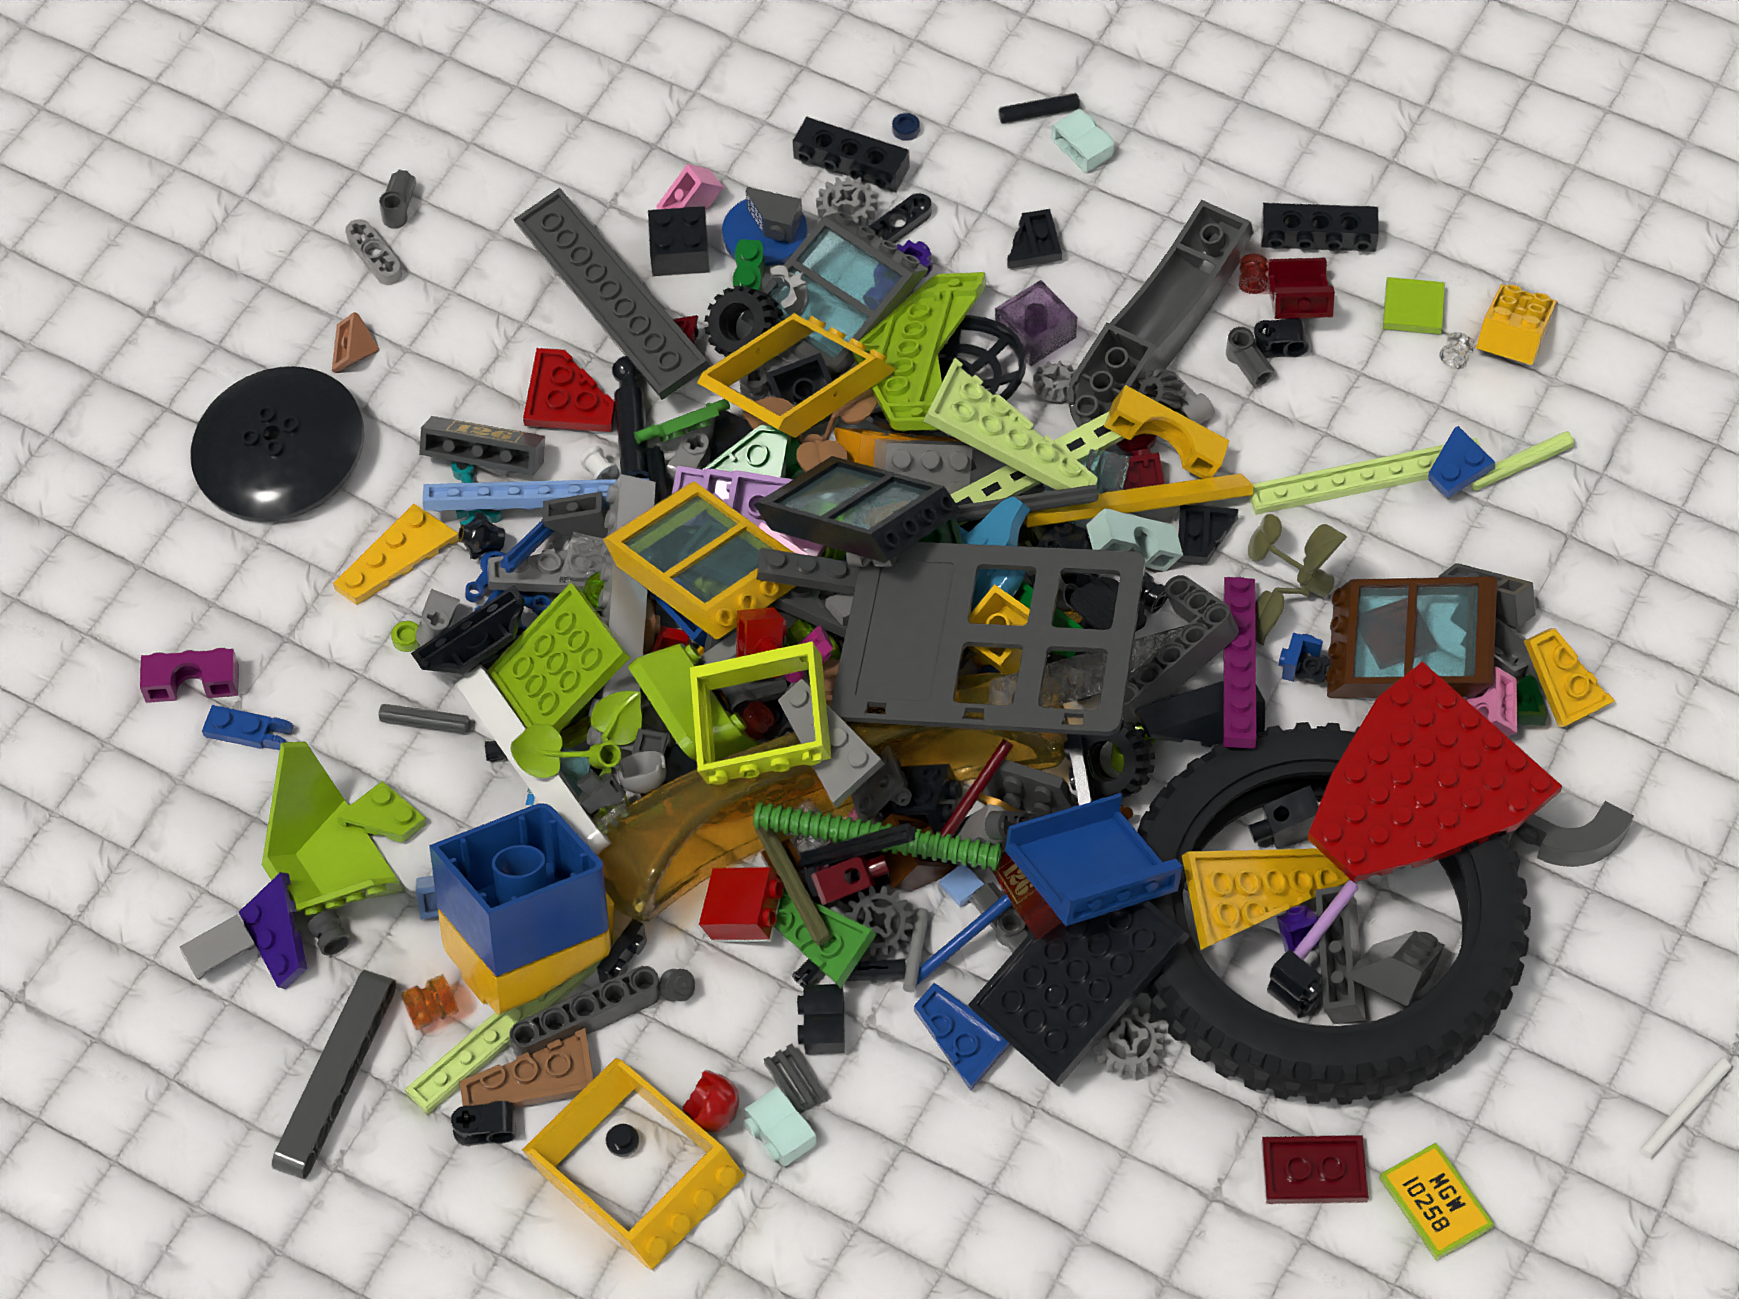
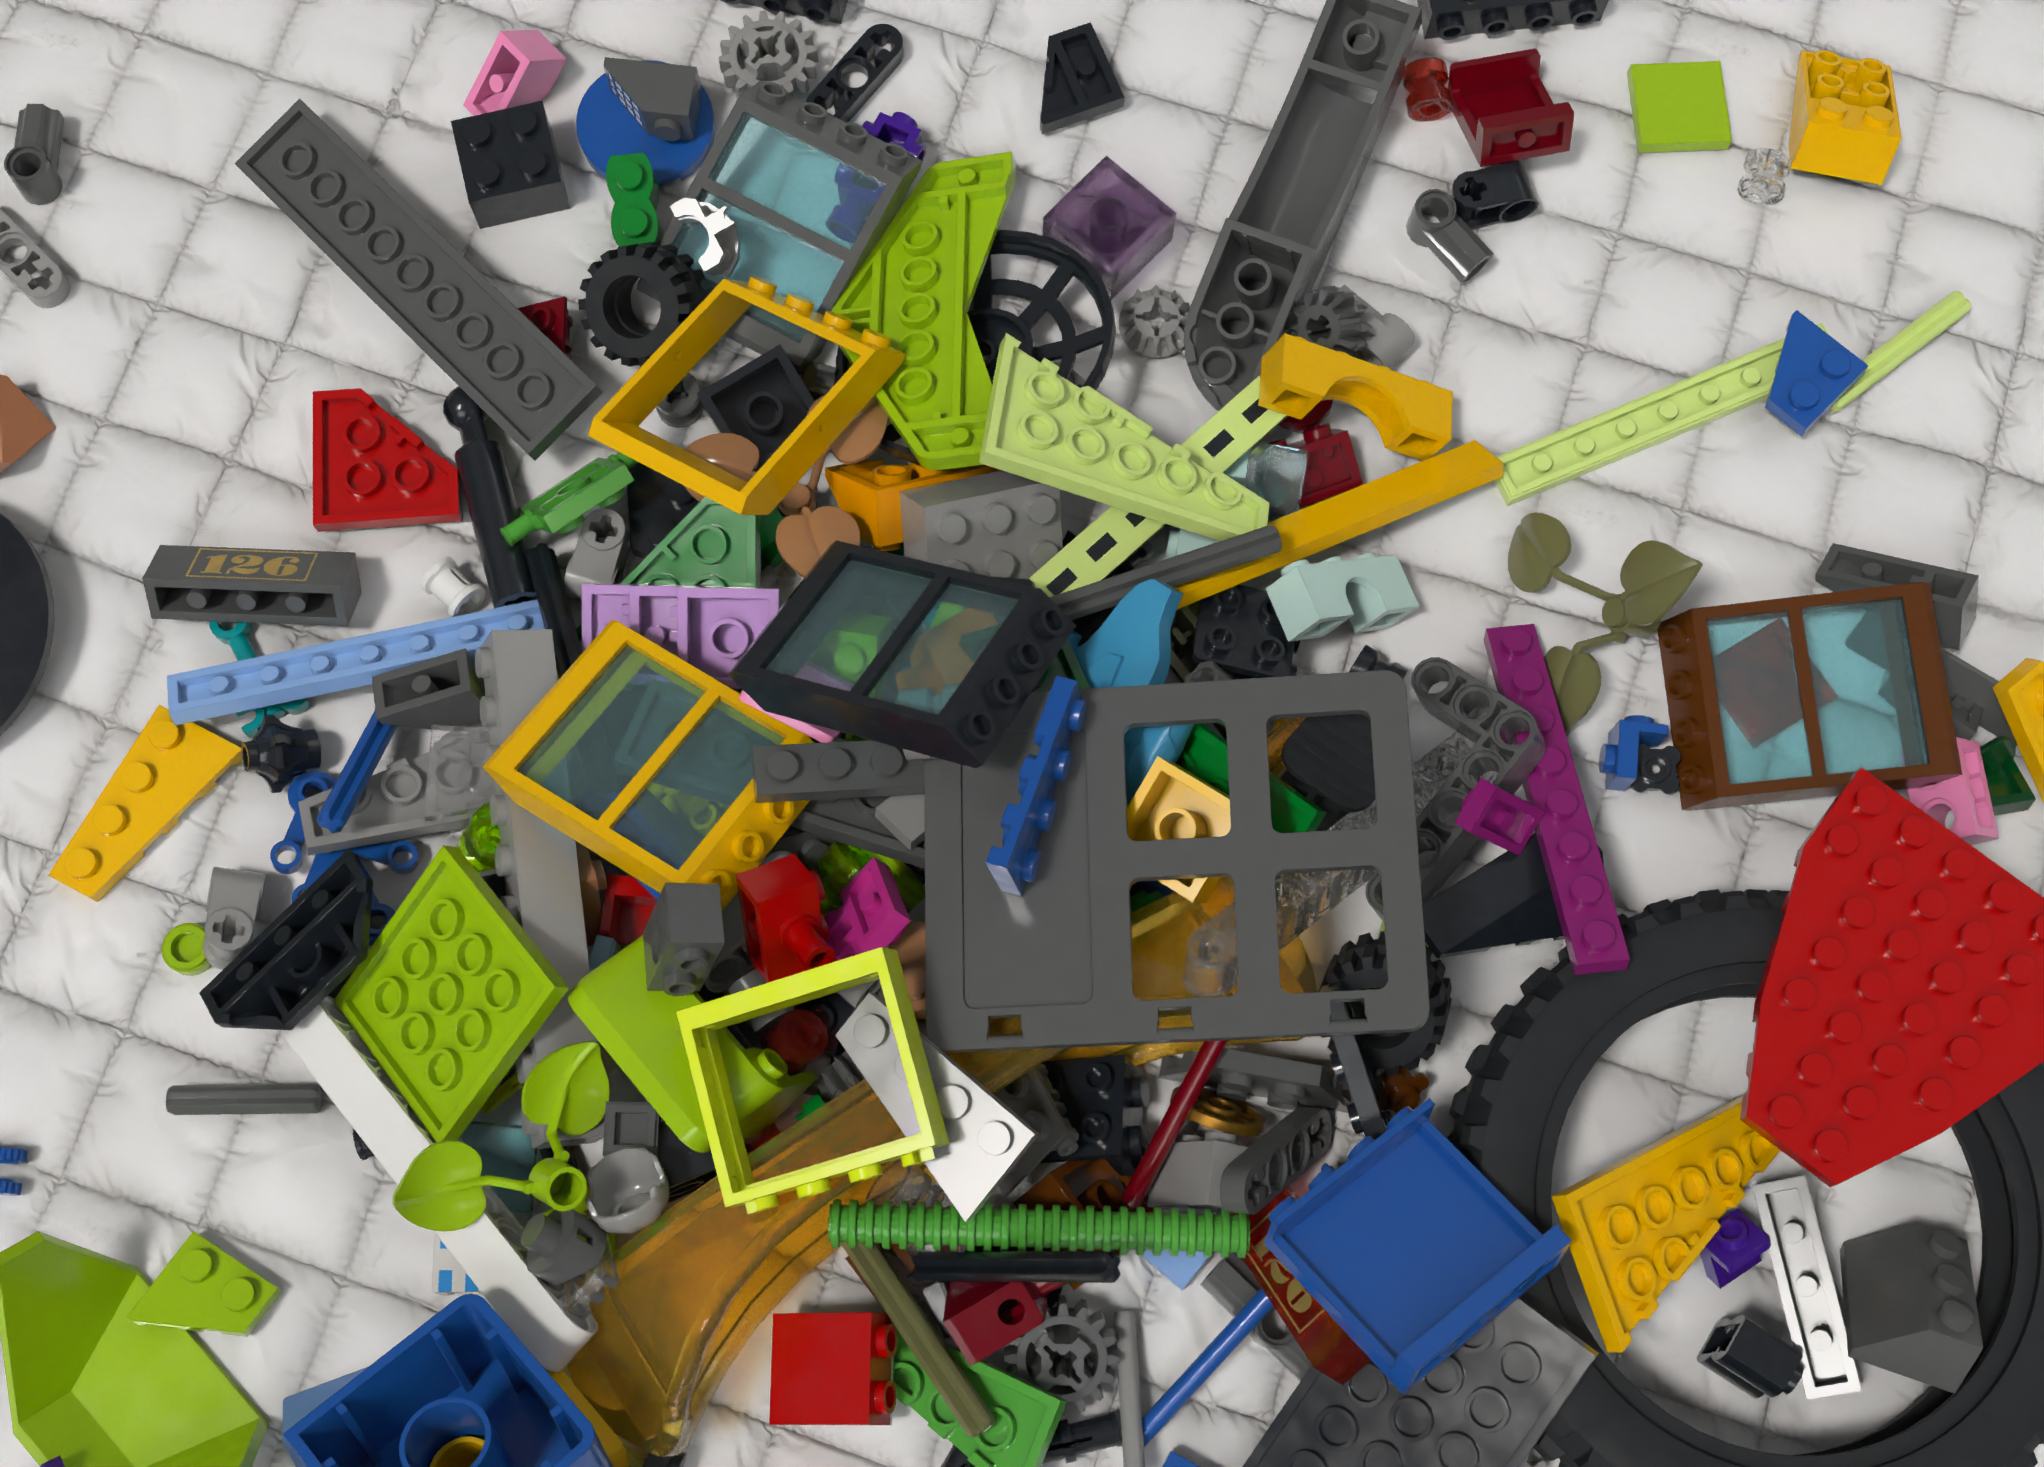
camera: 15 degrees left, 15 degrees up
(701, 634) = (683, 938): none -> dark grey brick
(914, 592) = (1038, 776): none -> blue wing
(1197, 658) = (1499, 816): none -> magenta plate
(1203, 531) = (1437, 551): black wing -> none
(1287, 819) = (1699, 1048): black torso -> none
(1326, 919) = (1782, 1248): lavender bar -> none

